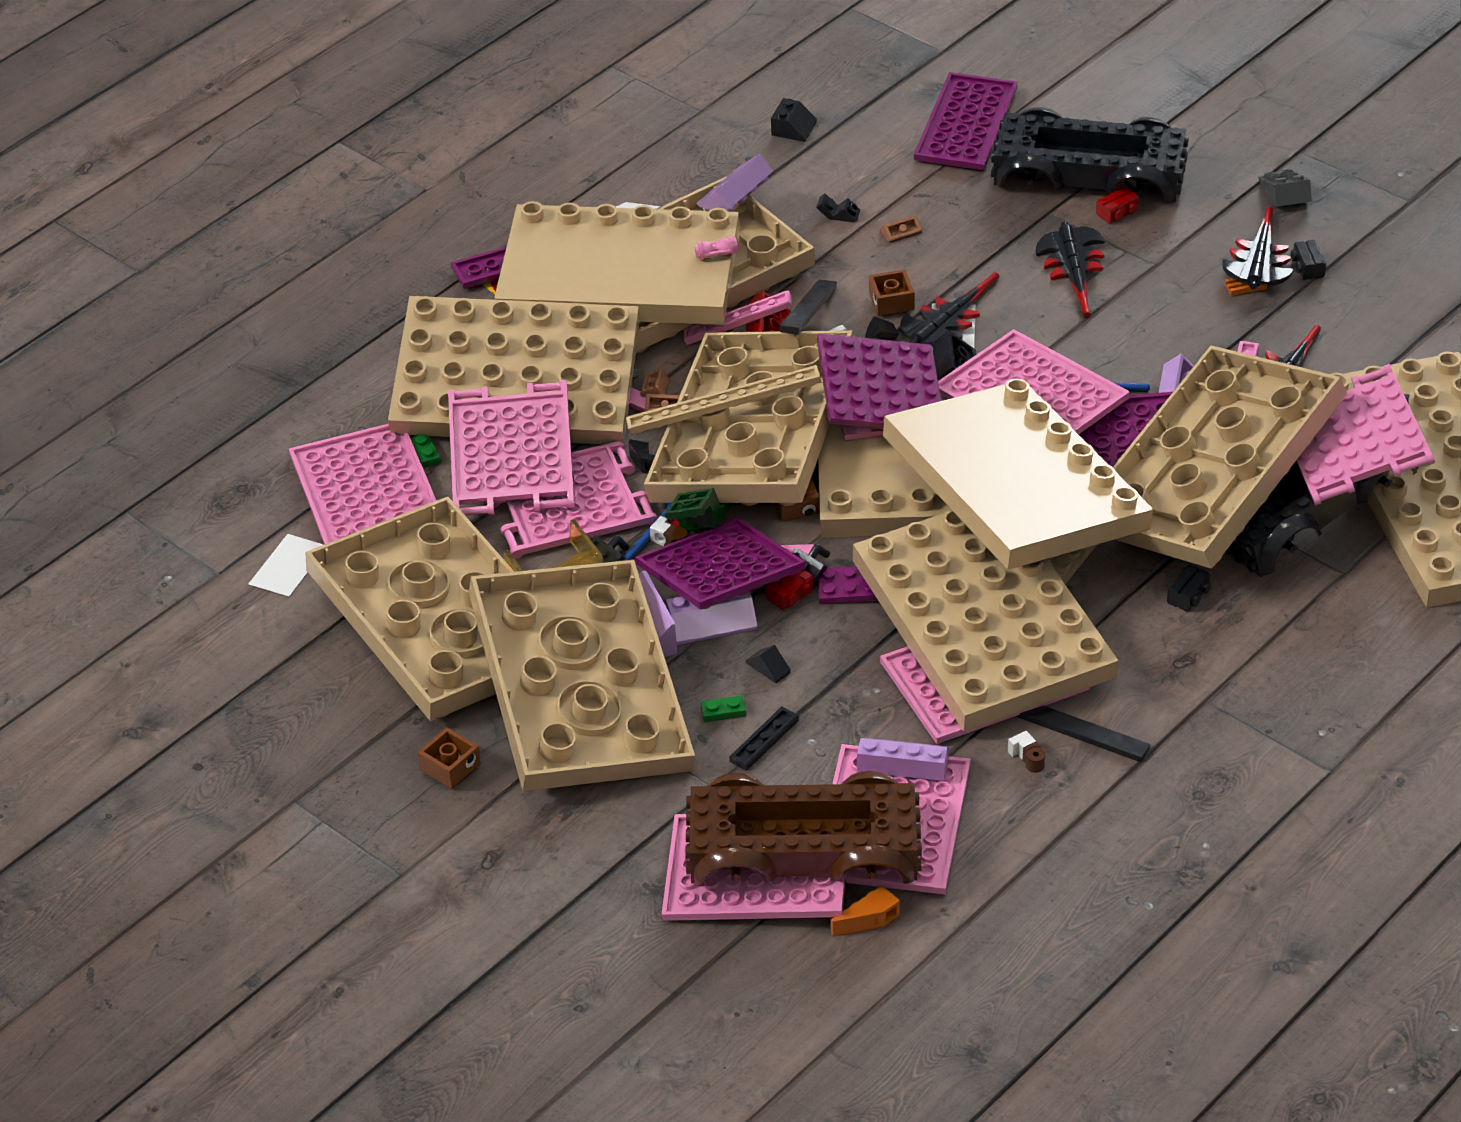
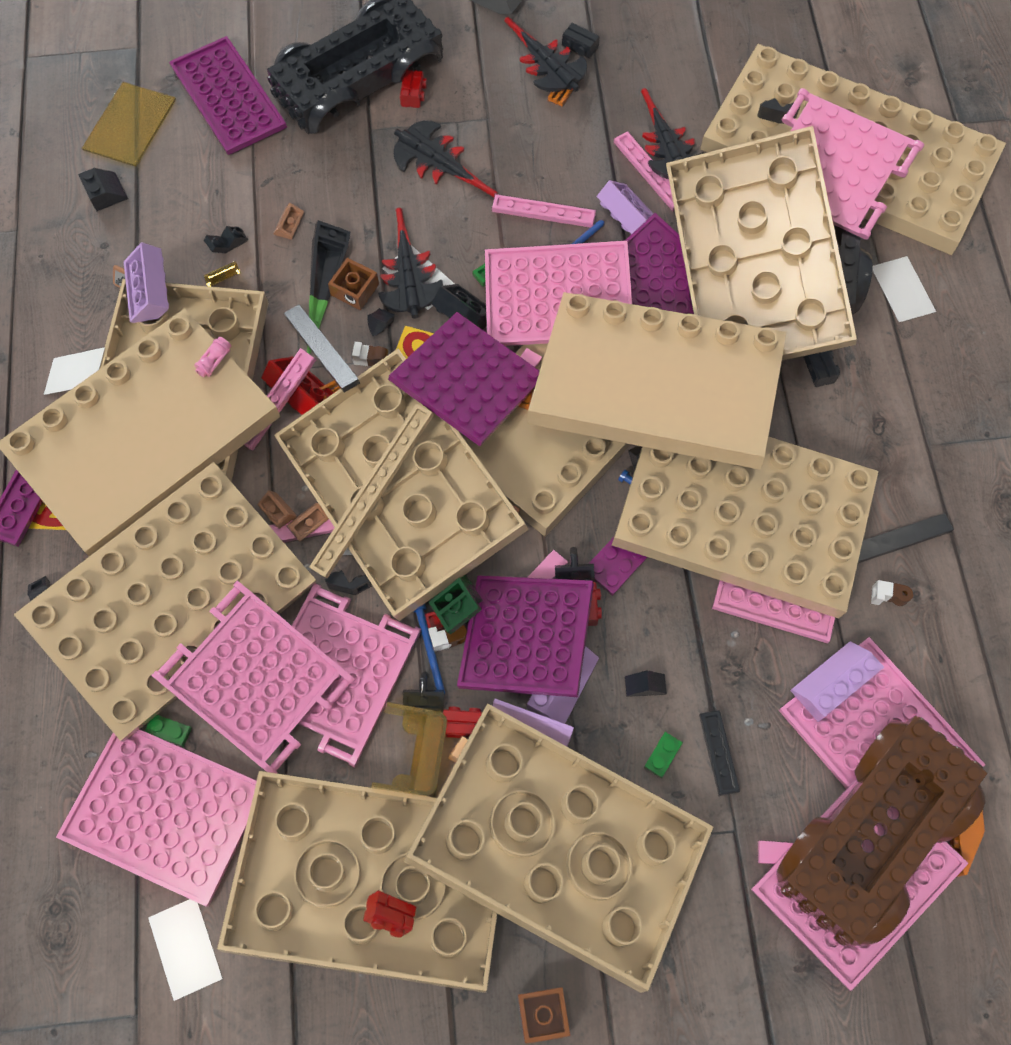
camera: 50 degrees left, 25 degrees up
(426, 619) = (389, 914): none -> red brick
(807, 226) = (221, 274): none -> clear yellow slope
(868, 95) = (129, 124): none -> clear yellow piece
(907, 255) = (327, 255): none -> black plate
(1111, 349) = (543, 211): none -> bright pink tile
(1344, 598) = (903, 289): none -> white sticker

